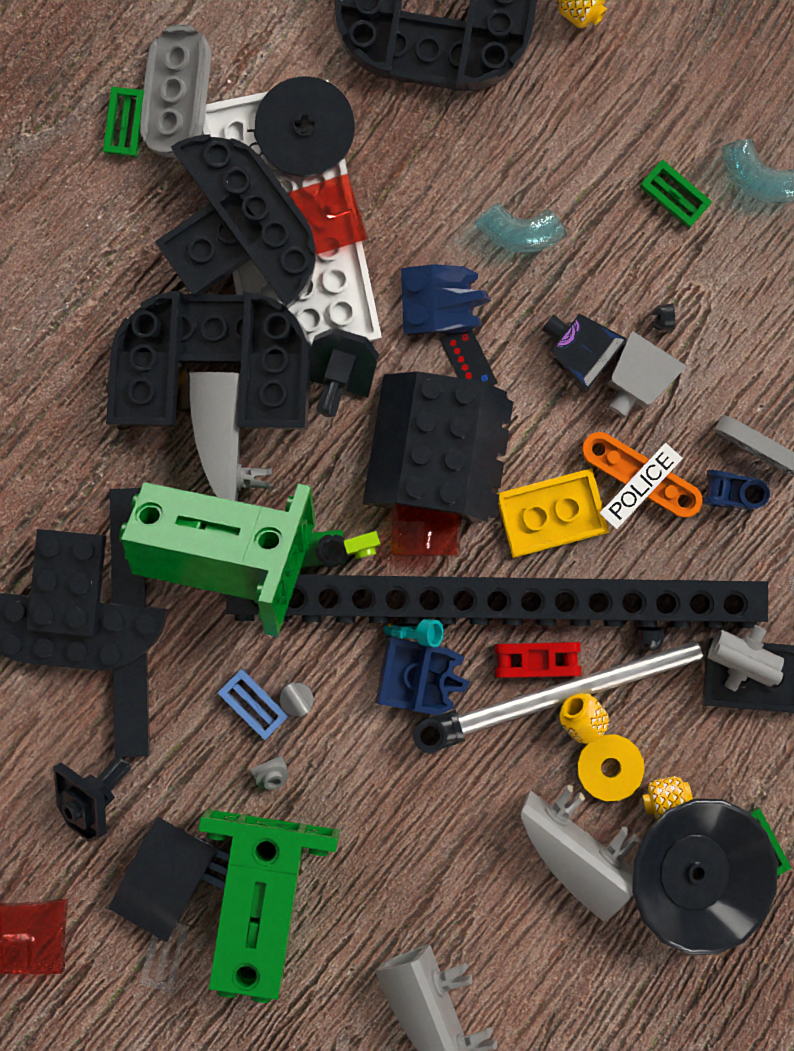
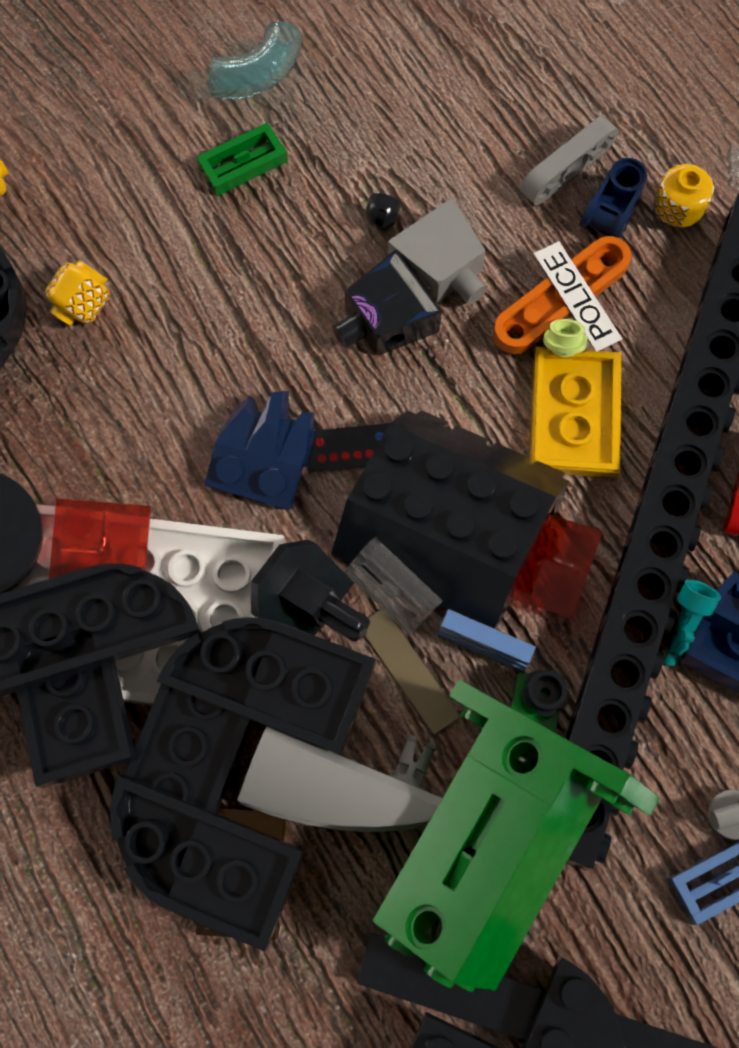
camera: 70 degrees left, 15 degrees down
(322, 452) = (410, 672): none -> dark tan sticker
(355, 500) = (486, 641): none -> medium blue tile
(363, 545) = (554, 642): lime plate -> none
(371, 424) = (396, 581): none -> clear tile
(514, 118) = (77, 293): none -> yellow head
(520, 234) = (219, 333): clear light blue cylinder -> none
(601, 487) = (565, 337): none -> yellowish green plate
(756, 541) = (683, 195): none -> yellow head

